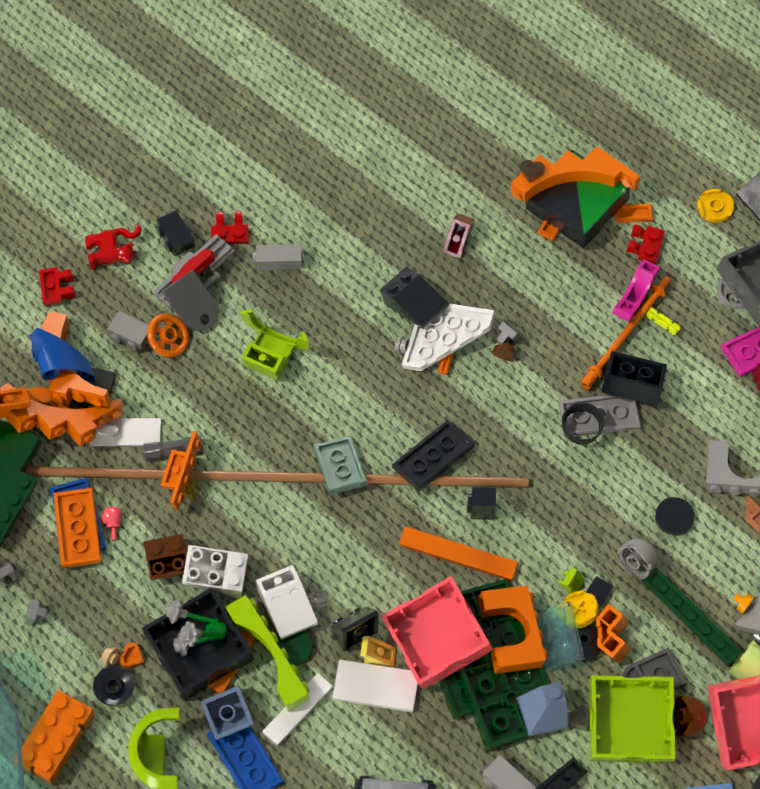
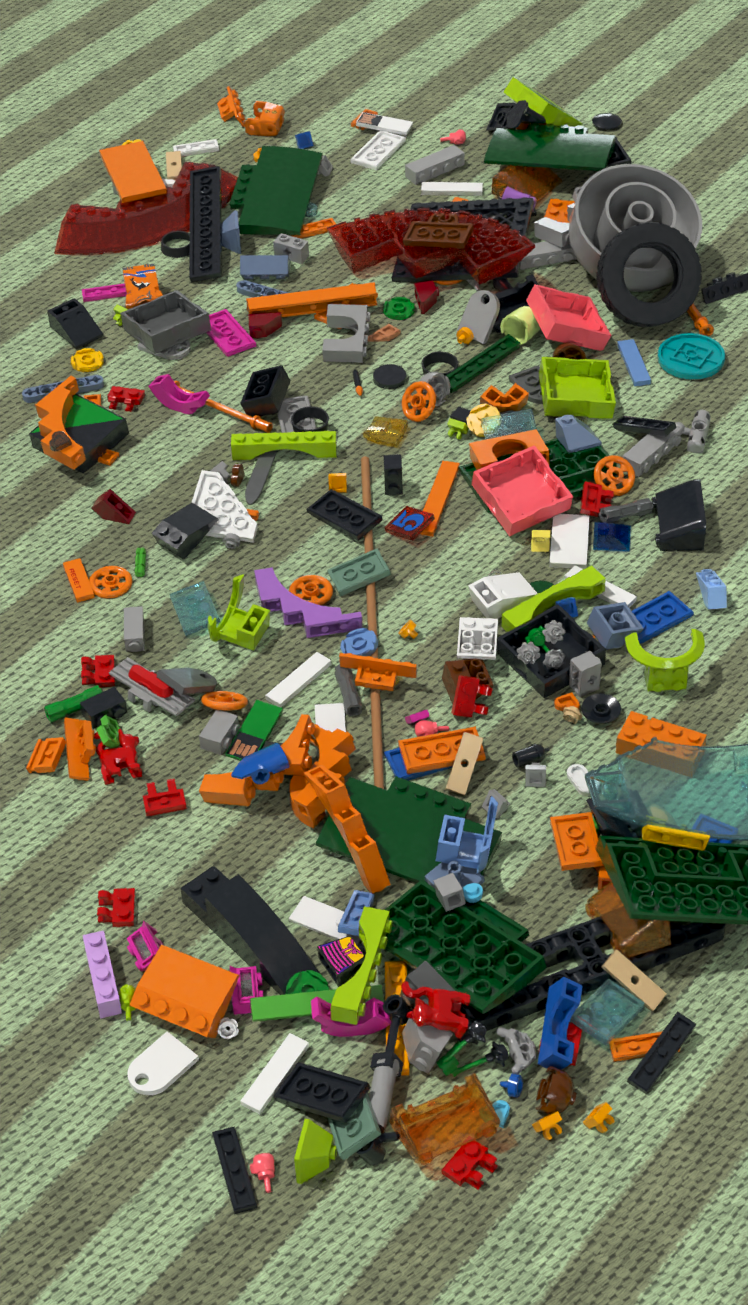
camera: 90 degrees left, 20 degrees down
(26, 658) = (576, 776): none -> white tile
(48, 544) = (467, 752): none -> tan tile
(61, 610) = (532, 754): none -> black piece
(123, 189) = (46, 755): none -> orange plate
(127, 213) = (79, 747): none -> orange bracket
(127, 508) = (417, 716): none -> dark pink tile
(129, 363) = (254, 730): none -> green piece
(137, 556) = (465, 697): none -> red plate
(142, 238) = (109, 732): none -> bright green tile
(154, 671) = (585, 673): none -> light grey brick
(179, 198) = (62, 708): none -> green axle
(196, 405) = (298, 680): none -> white tile
(235, 461) = (360, 642): none -> medium blue tile
(250, 508) = (408, 629): none -> light orange tile
(263, 668) = (569, 606): none -> blue tile
(275, 419) = (317, 619): none -> medium lavender arch
(302, 310) = (194, 607): none -> clear light blue plate
(311, 406) = (311, 589): none -> orange plate
(351, 629) = (521, 541): black slope -> none
(359, 208) = (78, 580): none -> orange tile
(365, 247) = (108, 585): none -> orange plate
(379, 730) = (611, 537): none -> clear blue slope
(380, 262) = (140, 562): none -> bright green axle
(411, 749) = (637, 508): none -> dark grey axle
(412, 519) = (409, 523): none -> clear red tile
(432, 712) = (591, 498): none -> red plate
(481, 755) = (625, 466): none -> orange plate
(486, 450) = (338, 482): none -> light orange tile
(521, 378) = (259, 476): none -> dark grey piece
(548, 398) = (318, 444): none -> lime arch
(574, 506) = (386, 431): none -> clear yellow plate
(612, 539) = (414, 401): none -> orange plate
(663, 321) = (205, 384): neon yellow axle -> none
(664, 191) = (34, 397): none -> sand blue beam
(665, 481) = (358, 388): none -> black piece
(695, 555) = (435, 357): none -> black tyre

